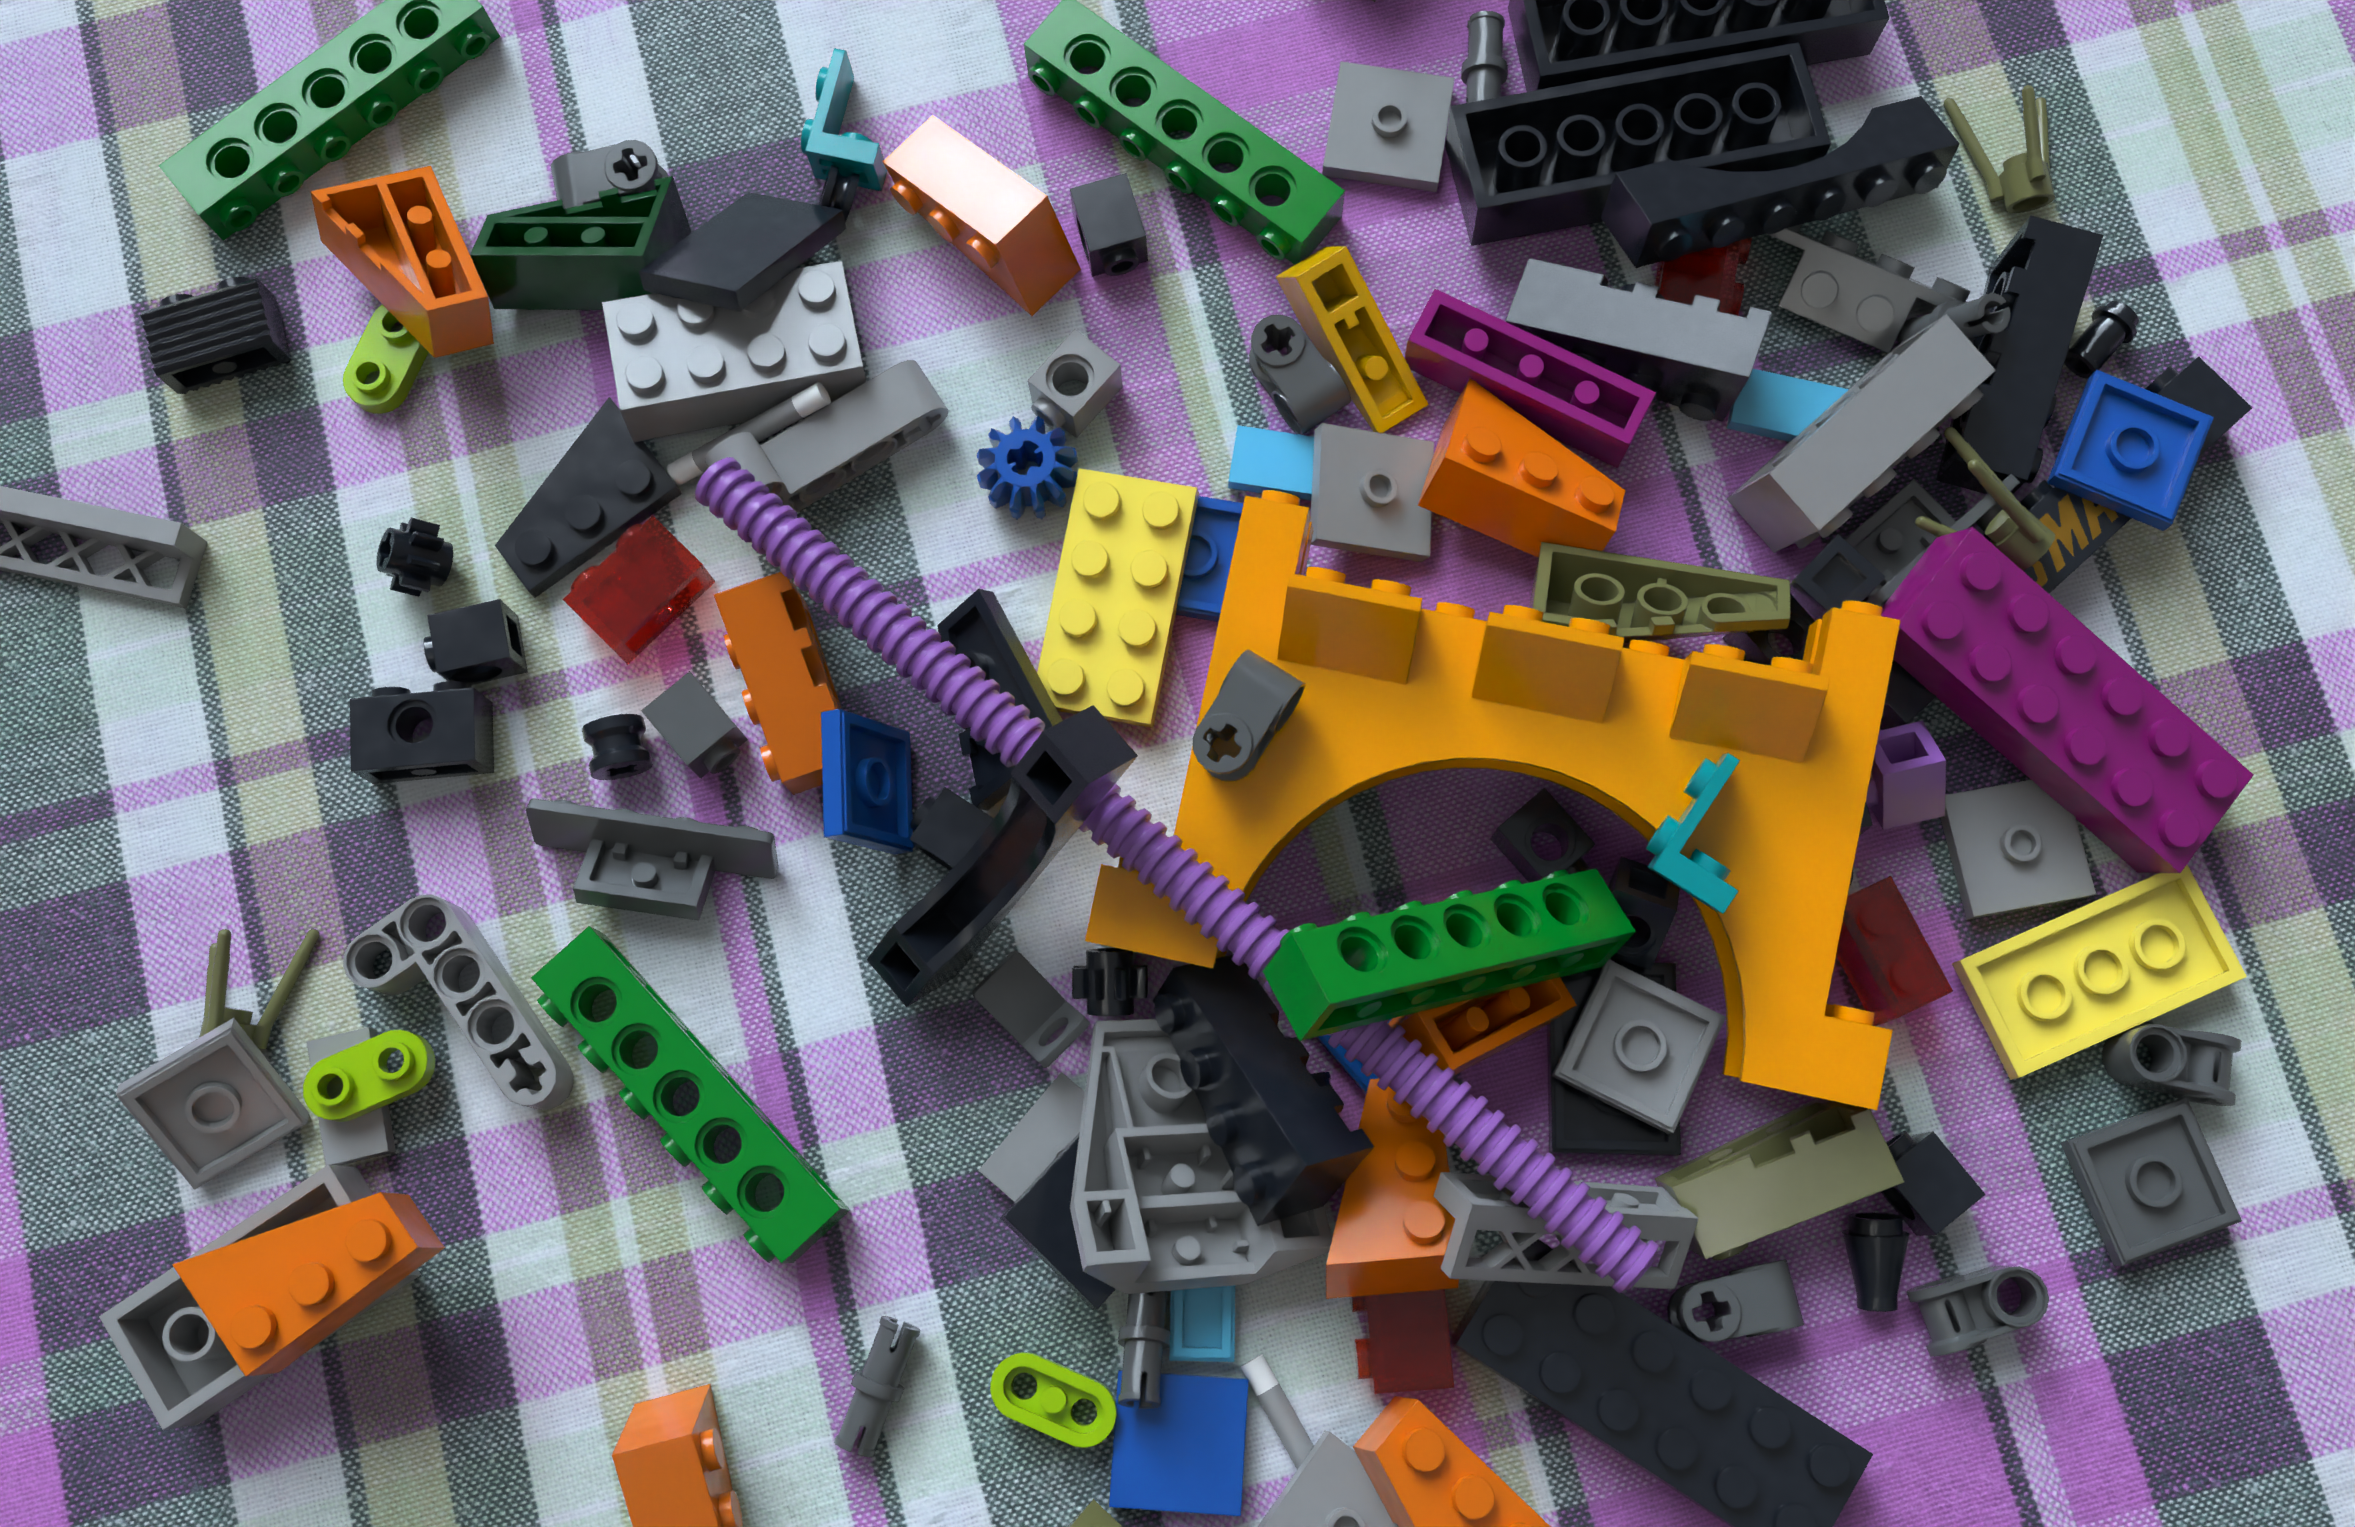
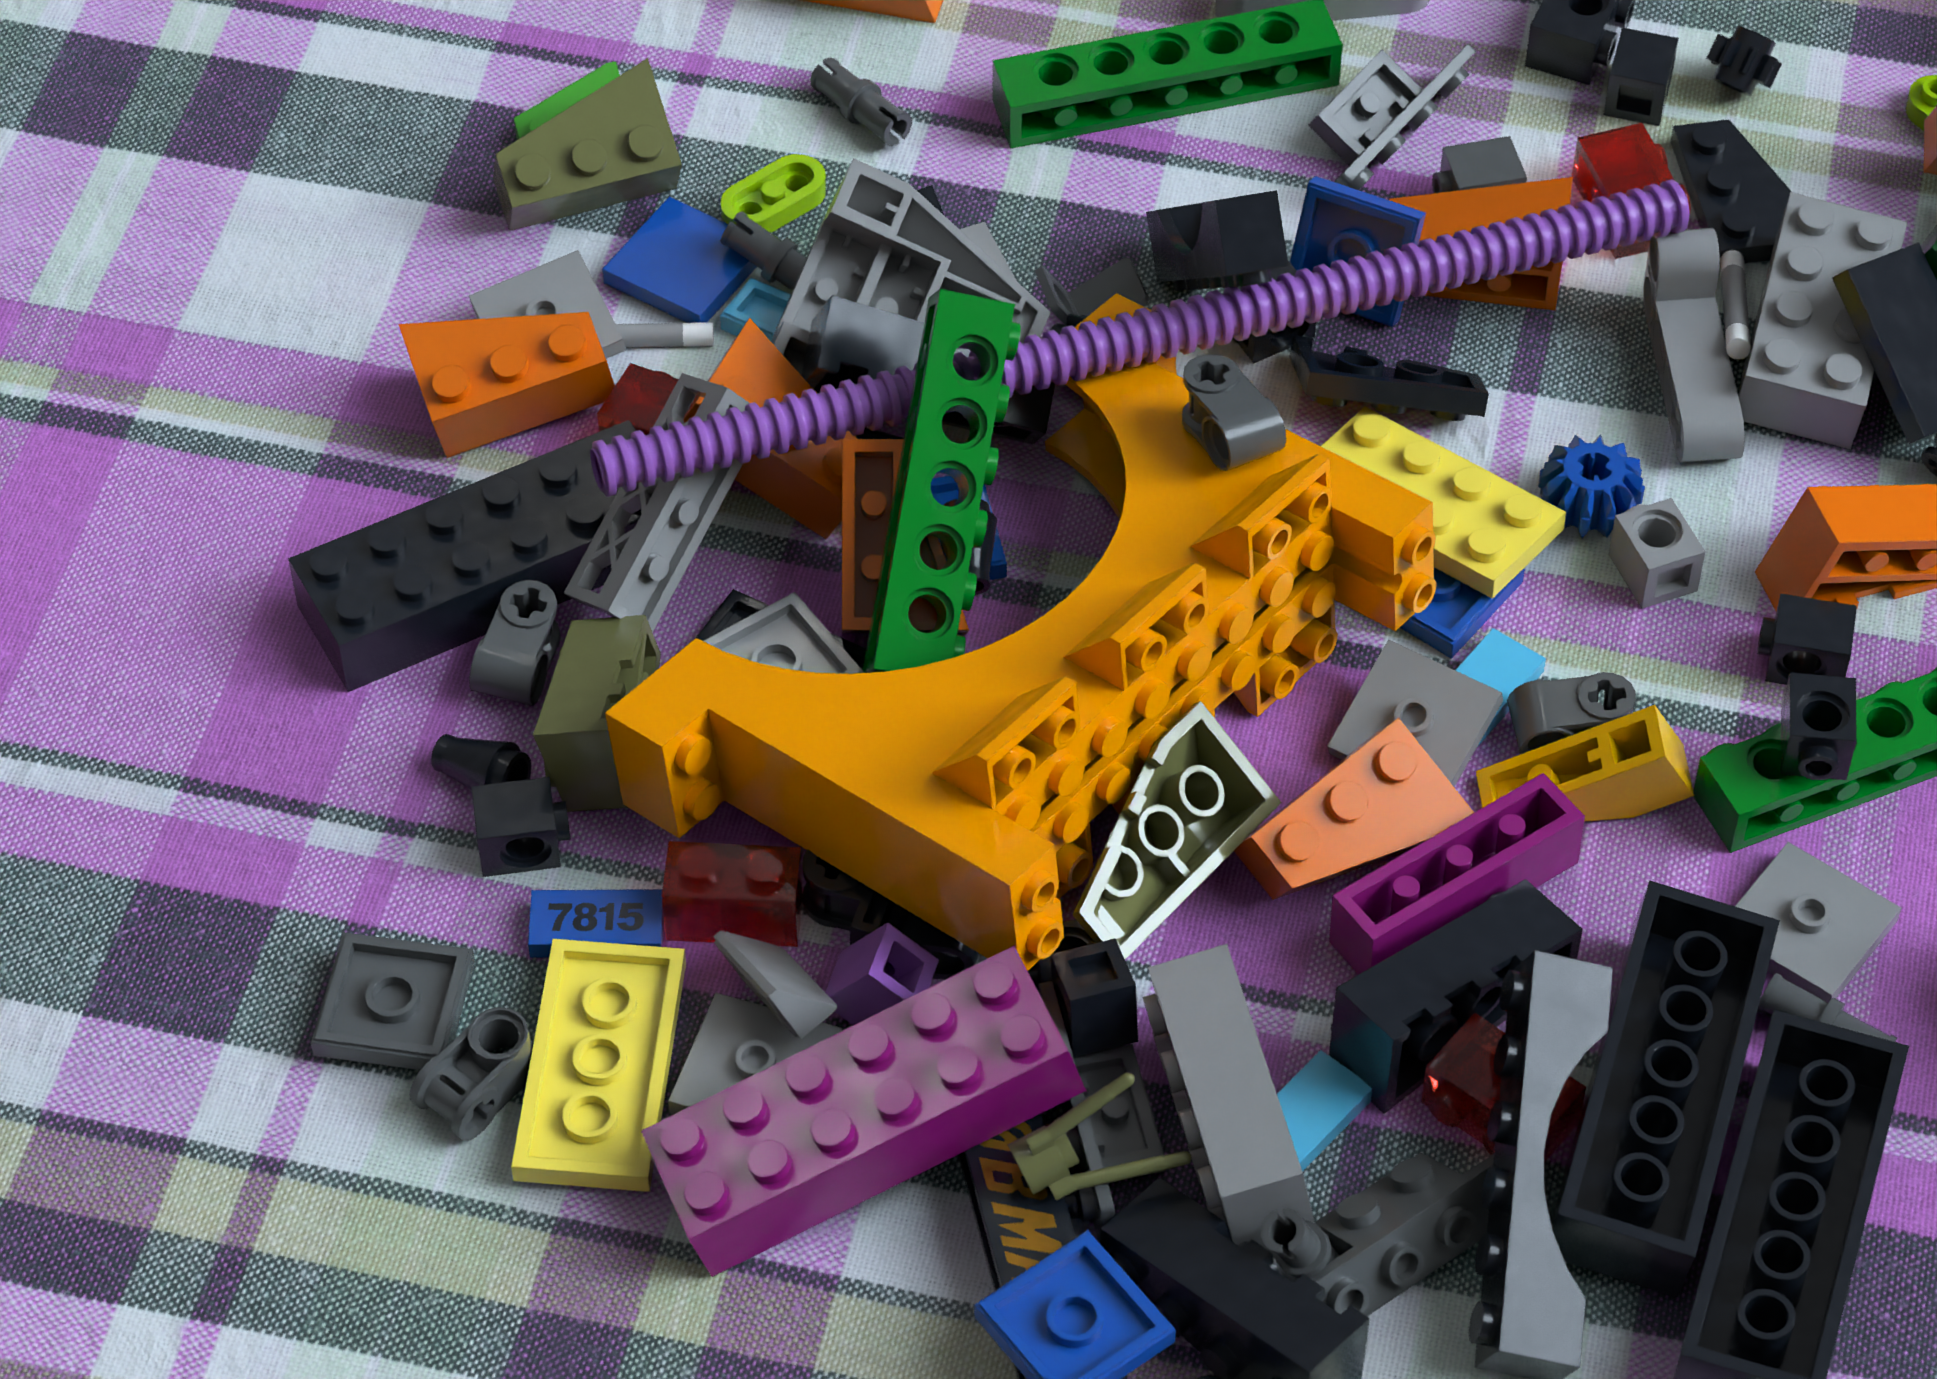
camera: 115 degrees right, 25 degrees down
(617, 746) = (1493, 122): black wheel -> none
(1240, 171) = (1818, 726): none -> black brick
(1700, 873) = (905, 635): teal bracket -> none
(1955, 860) = (777, 982): none -> light grey slope
(1961, 1062) = (595, 916): none -> blue tile
(1965, 1308) = (391, 817): dark grey piece -> none

